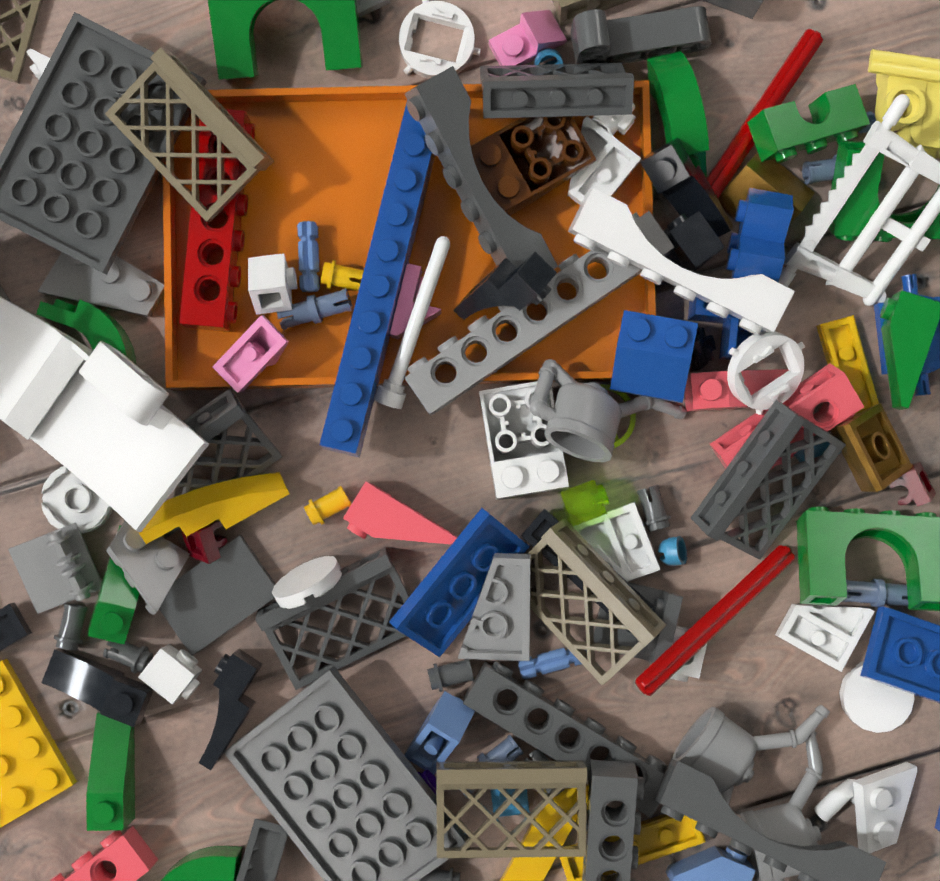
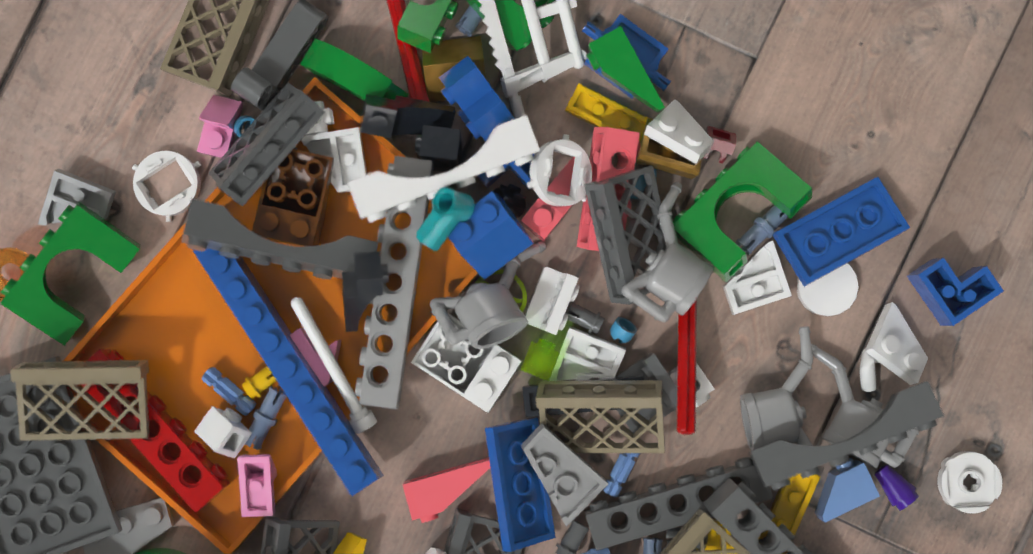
camera: 45 degrees left, 0 degrees up
(327, 506) = (396, 521): yellow pin -> none
(643, 465) = (551, 300): none -> white bracket
(648, 300) = (448, 209): none -> teal piece
(767, 549) = (672, 273): none -> light grey piece
(895, 442) = (679, 132): none -> white wing

